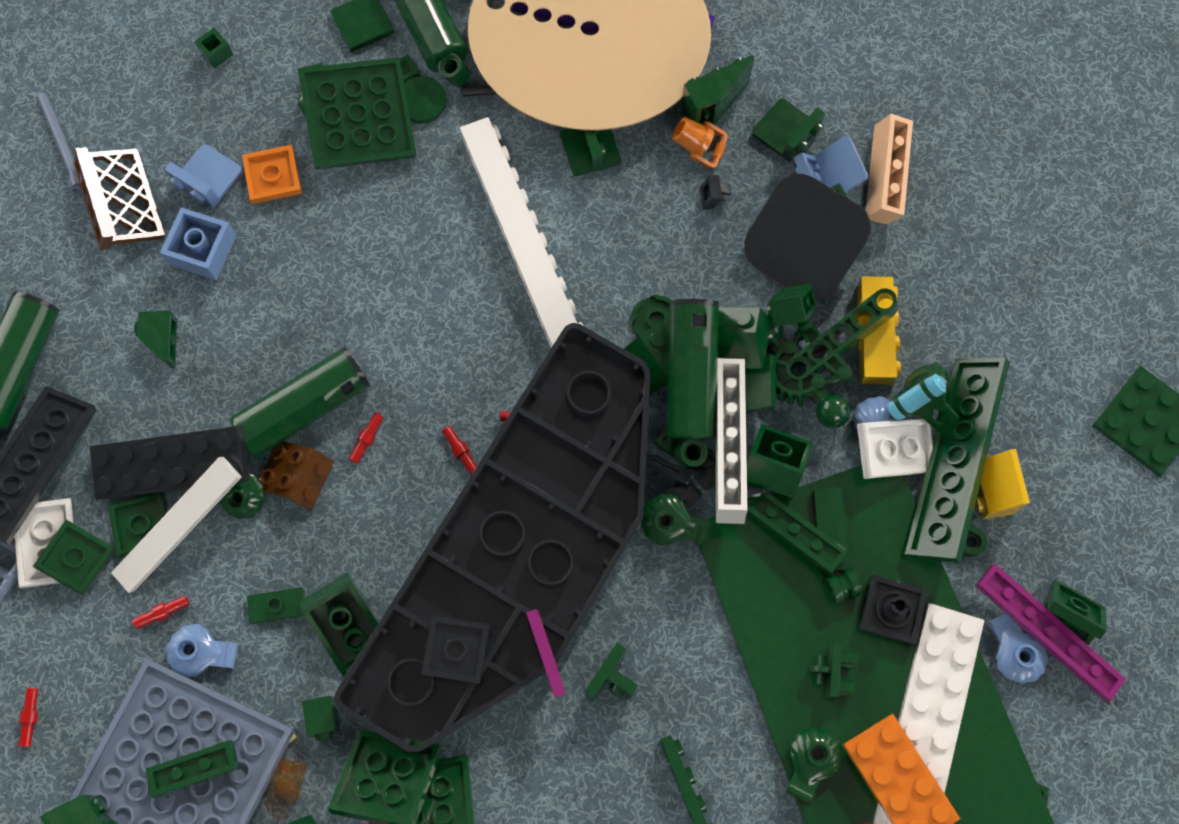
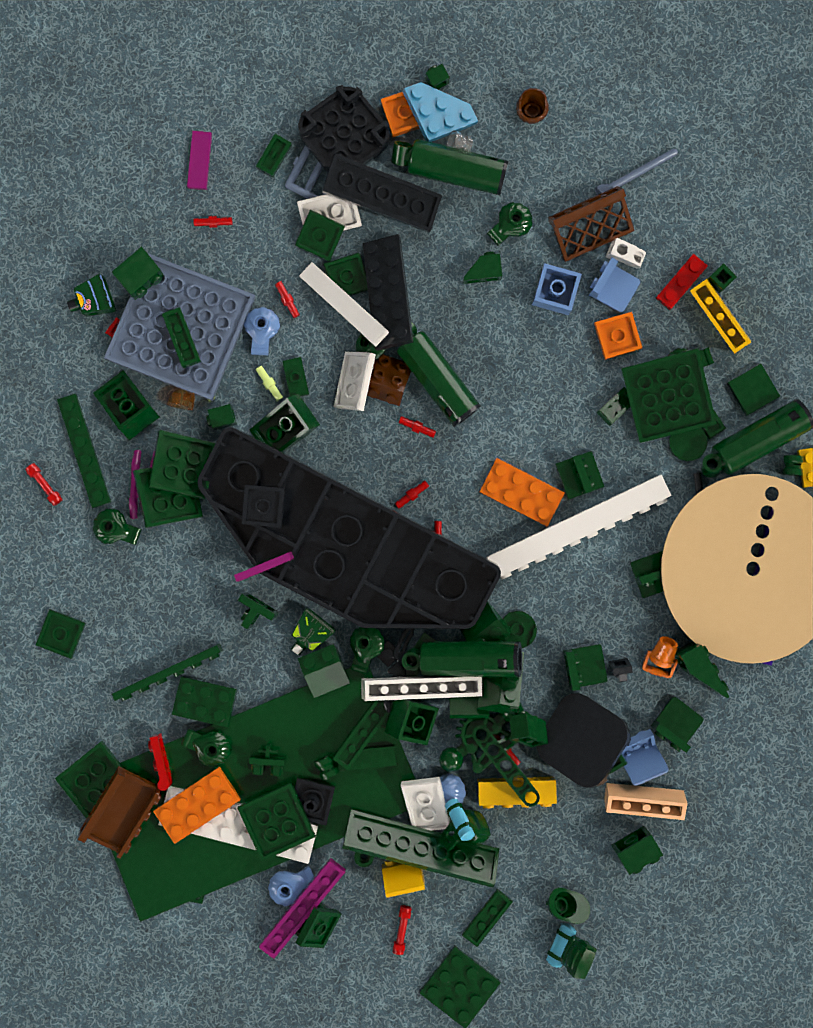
camera: 90 degrees right, 15 degrees up
(100, 297) = (508, 227): none -> dark green animal
(166, 150) = (626, 253): none -> white leg
(212, 96) = (681, 281): none -> red plate
(261, 49) = (720, 316): none -> yellow brick
(280, 645) = (269, 383): none -> yellowish green bar
(289, 518) = (354, 380): none -> white tile
(366, 182) = (615, 407): none -> dark green plate
(453, 231) = (579, 475): none -> dark green bracket
(469, 305) = (522, 492): none -> orange plate
(647, 600) = (310, 632): none -> dark green torso
(704, 582) = (324, 671): none -> dark green slope
(709, 237) = (585, 666): none -> dark green bracket
(745, 767) = (204, 702): none -> dark green plate
(924, 660) = (276, 821): none -> dark green plate
(953, 180) = (637, 850): none -> dark green brick
(1031, 271) = (568, 906): none -> dark green piece
(1051, 380) = (487, 917): none -> dark green tile
(1092, 270) = (571, 952): none -> dark green piece
(1097, 499) = (399, 945): none -> red bar

